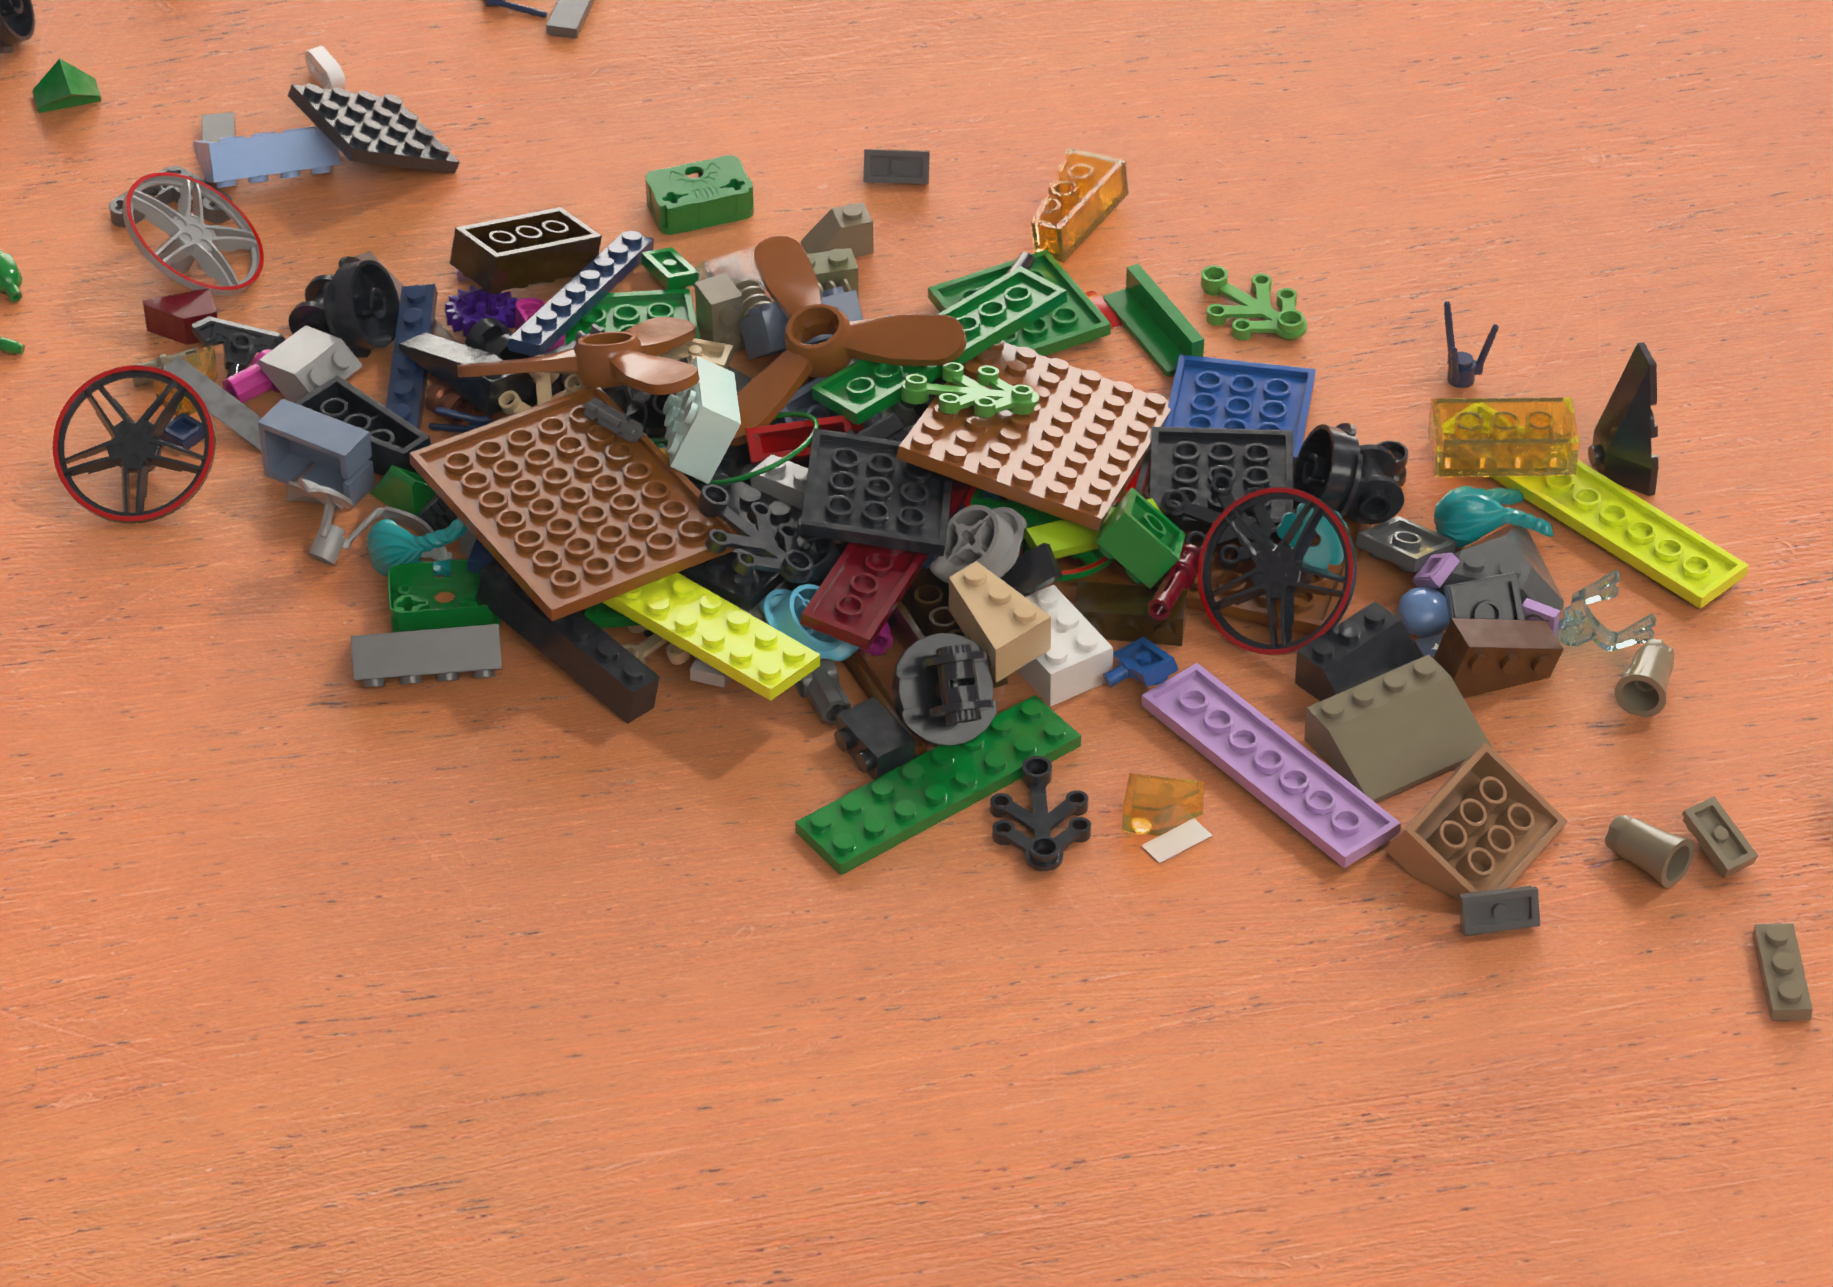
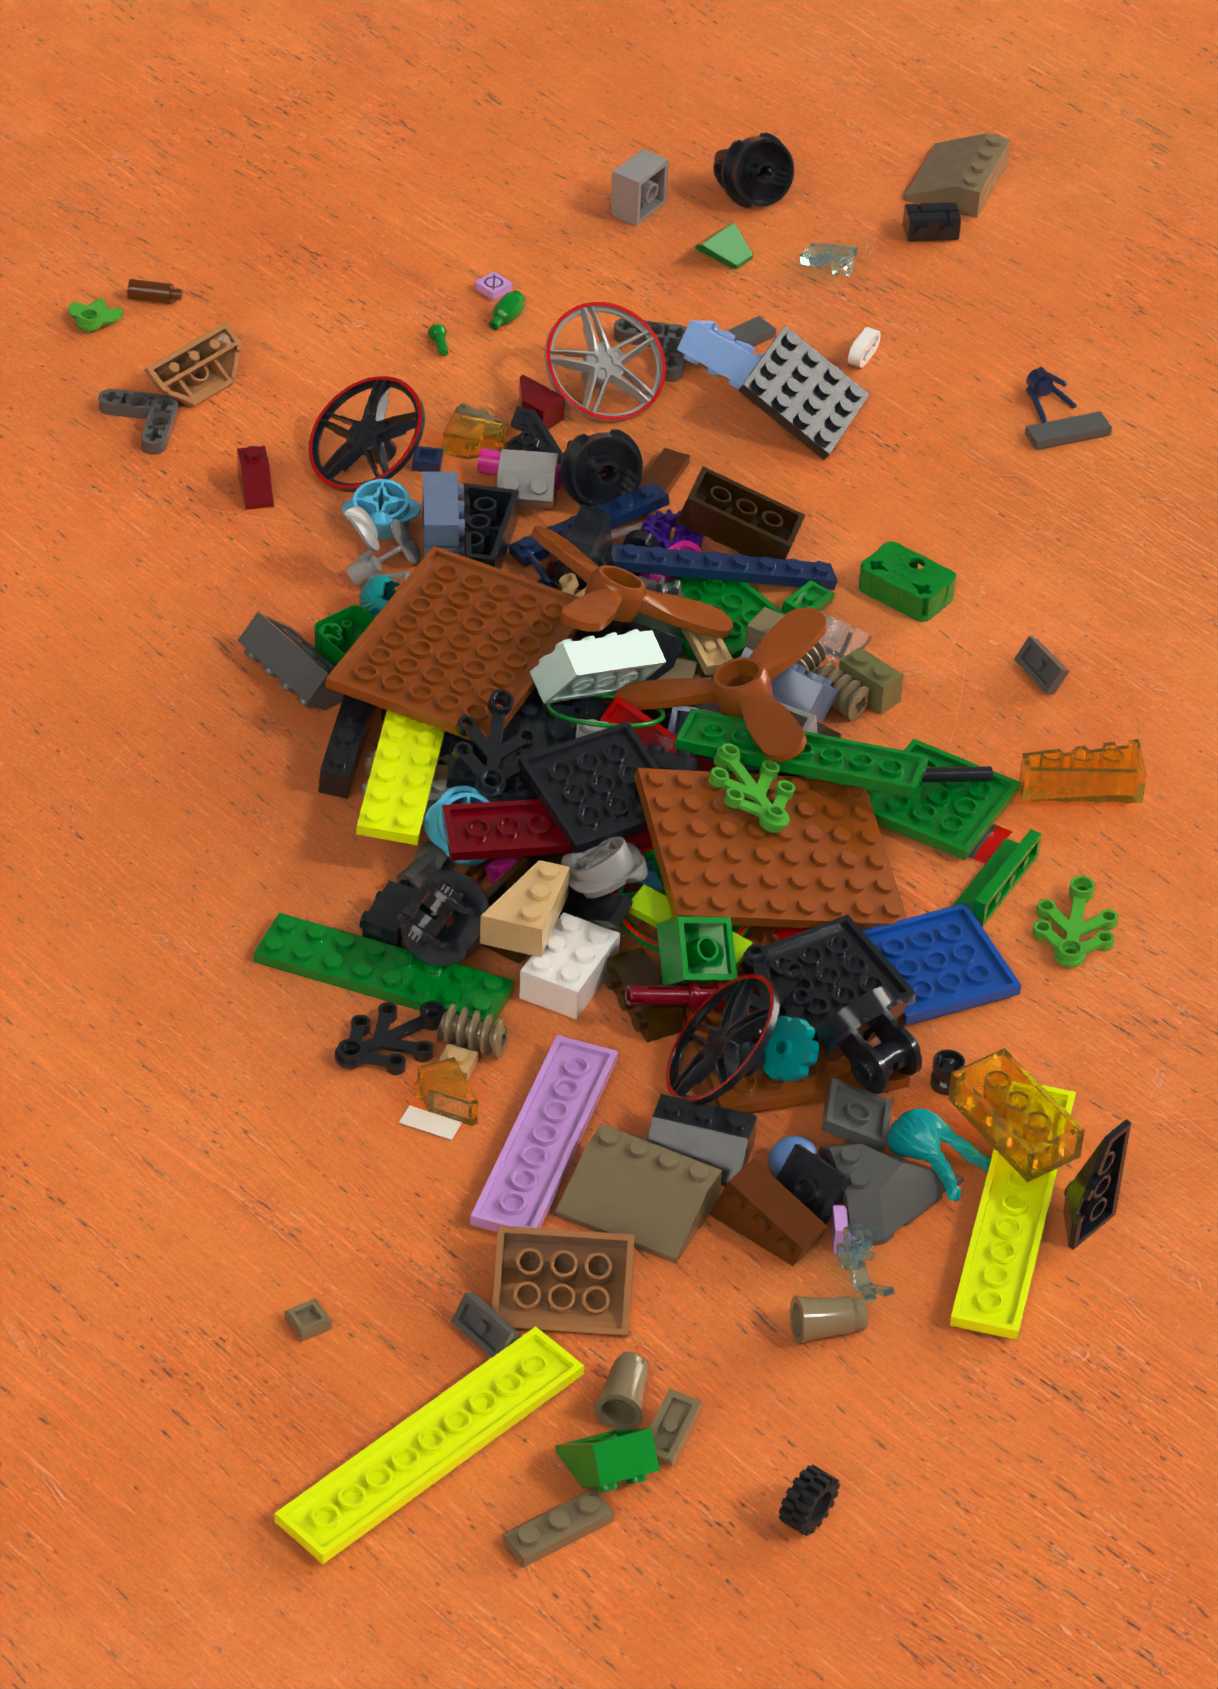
camera: 55 degrees right, 0 degrees up
(93, 564) = (254, 477): none -> dark red slope
(164, 27) = (830, 255): none -> clear light blue plate
(219, 402) = (459, 445): flat silver sticker -> none
(245, 501) = (390, 498): none -> medium azure piece
(613, 420) = (552, 624): dark grey axle -> none
(842, 229) = (934, 671): dark tan slope -> none
(1089, 749) = (473, 1032): none -> dark tan piece
(1109, 784) = (465, 1058): none -> tan plate
(1143, 662) = (588, 1022): blue plate -> none
(1389, 1037) = (308, 1320): none -> dark tan tile
(1436, 570) = (829, 1140): lavender tile -> none
(1461, 365) = (1110, 1071): plant -> none
(1625, 1018) = (428, 1445): none -> neon yellow plate
(1730, 891) = (611, 1458): none -> green slope

